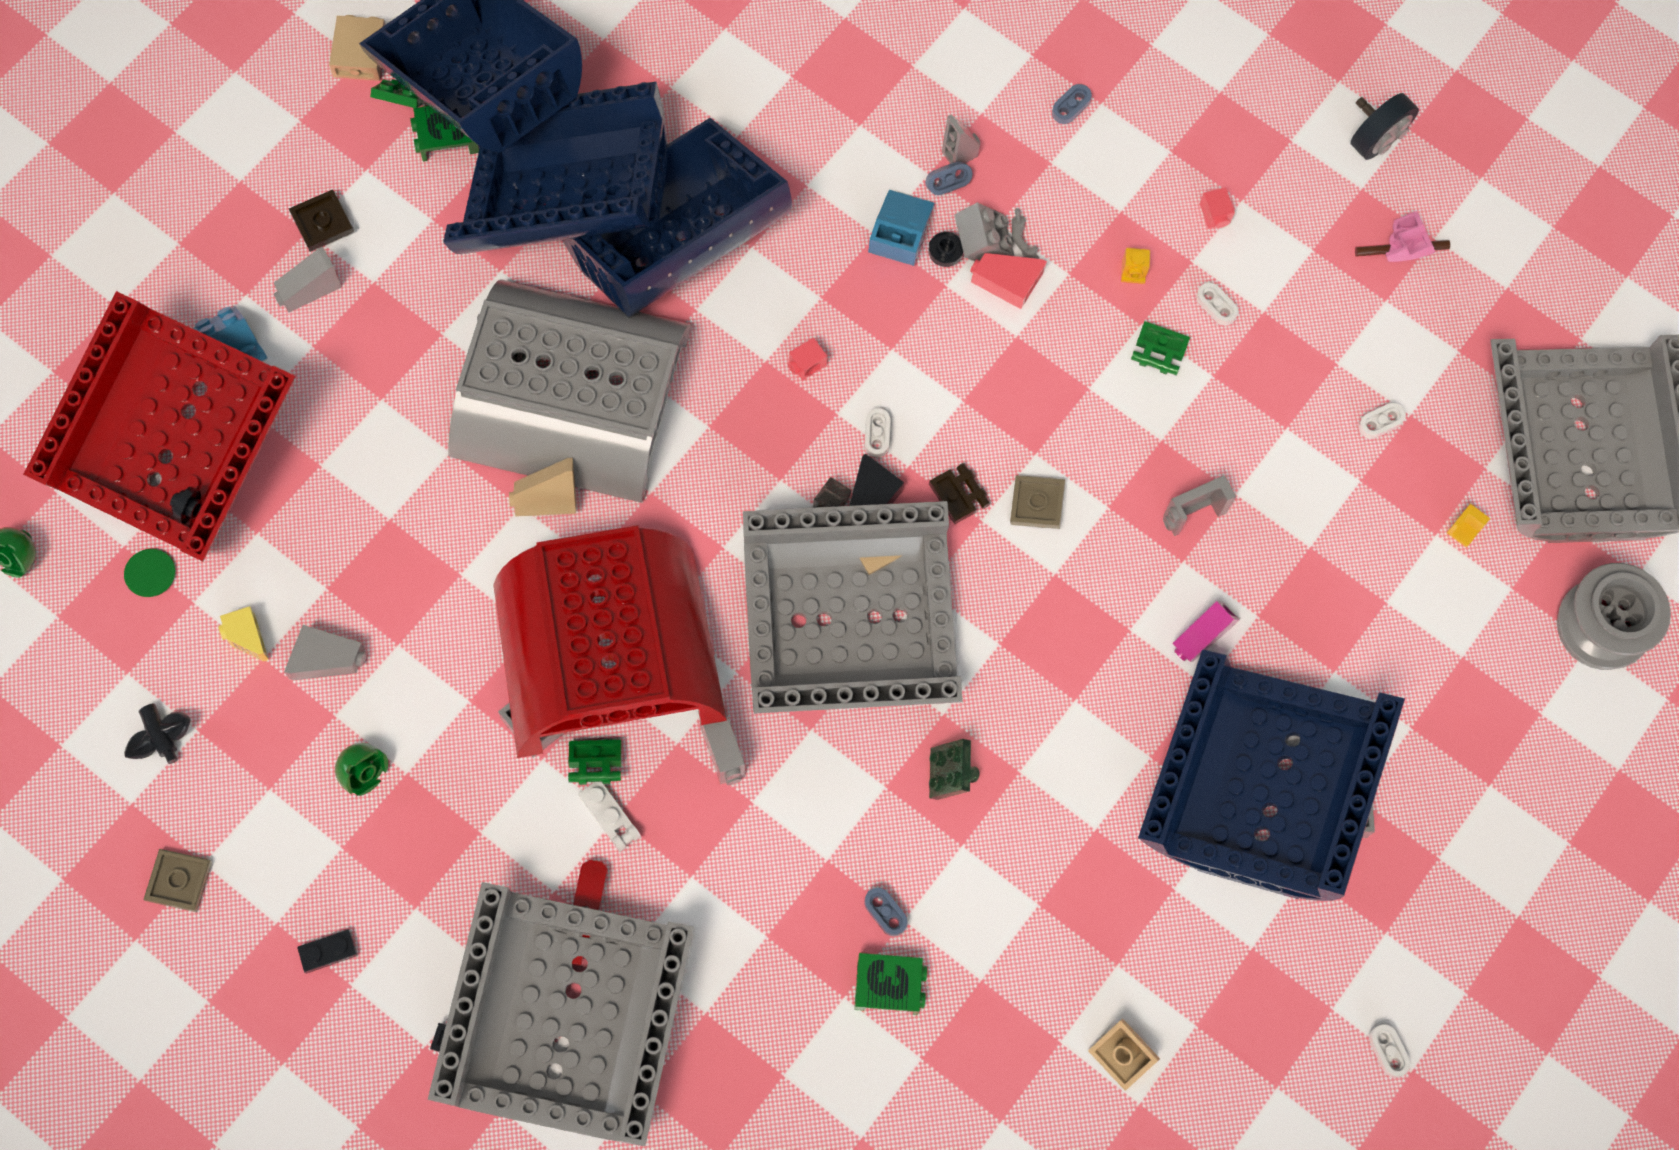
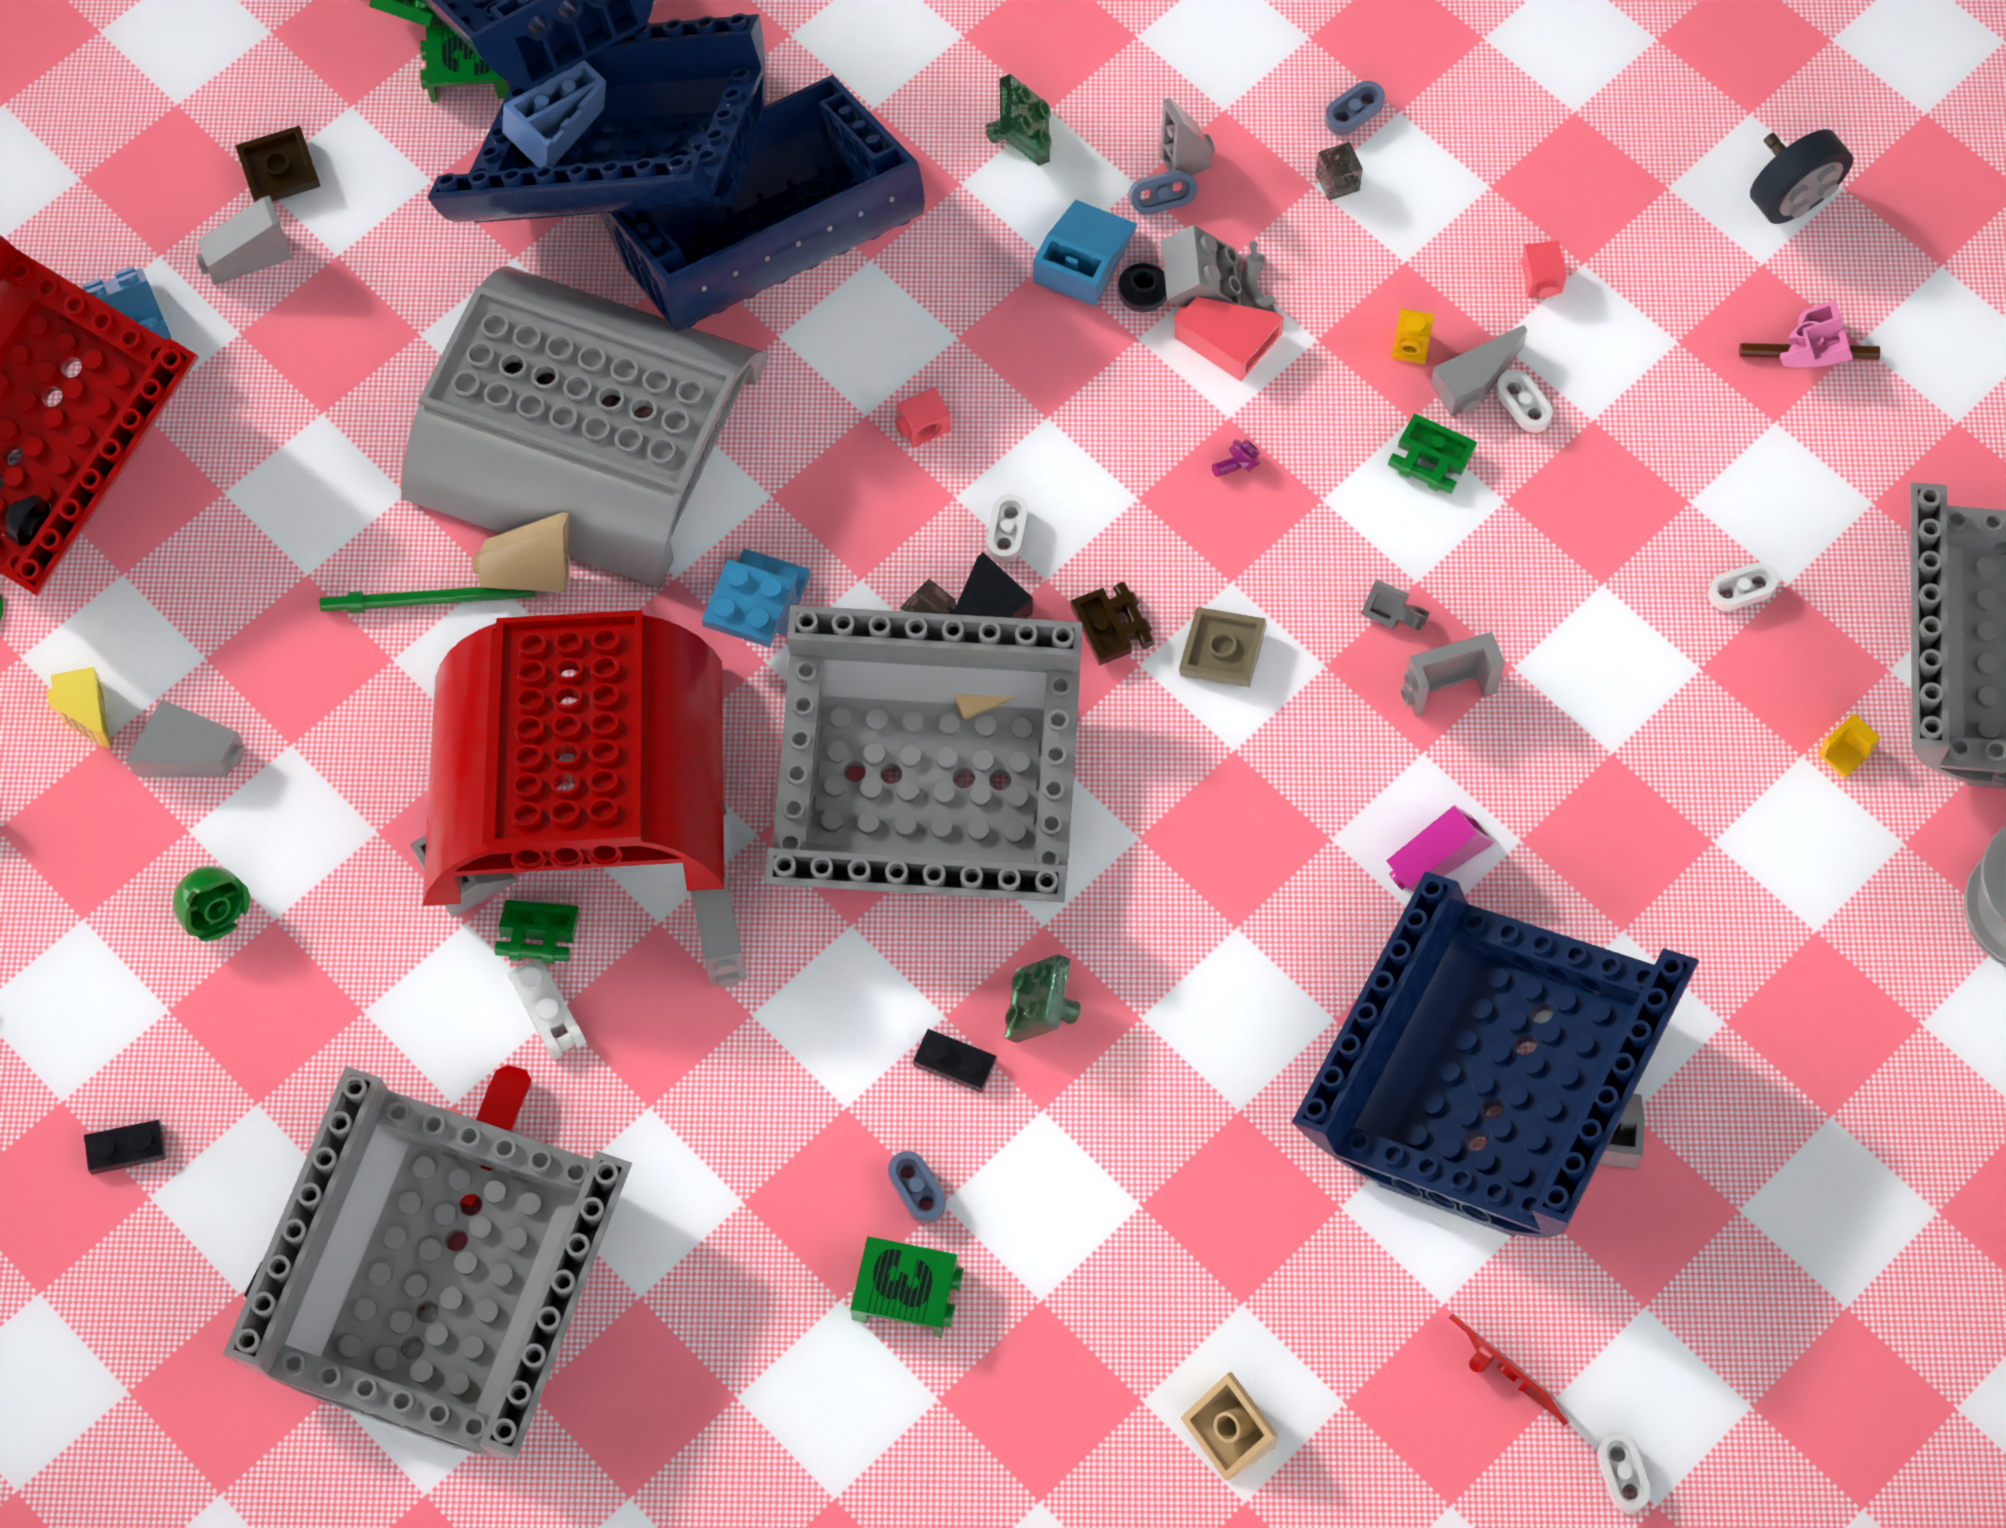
camera: 15 degrees right, 5 degrees down
(429, 535) = (357, 602): none -> green bar
(519, 167) = (554, 114): none -> medium blue wedge
(711, 503) = (755, 597): none -> dark azure bracket
(845, 136) = (1022, 120): none -> clear green plate
(897, 818) = (954, 1061): none -> black plate
(1032, 362) = (1244, 455): none -> magenta plate
(1068, 151) = (1339, 171): none -> clear smoke brick
(1146, 460) = (1389, 605): none -> dark grey plate
(1176, 292) = (1470, 376): none -> light grey slope
(1289, 979) = (1487, 1353): none -> red piece

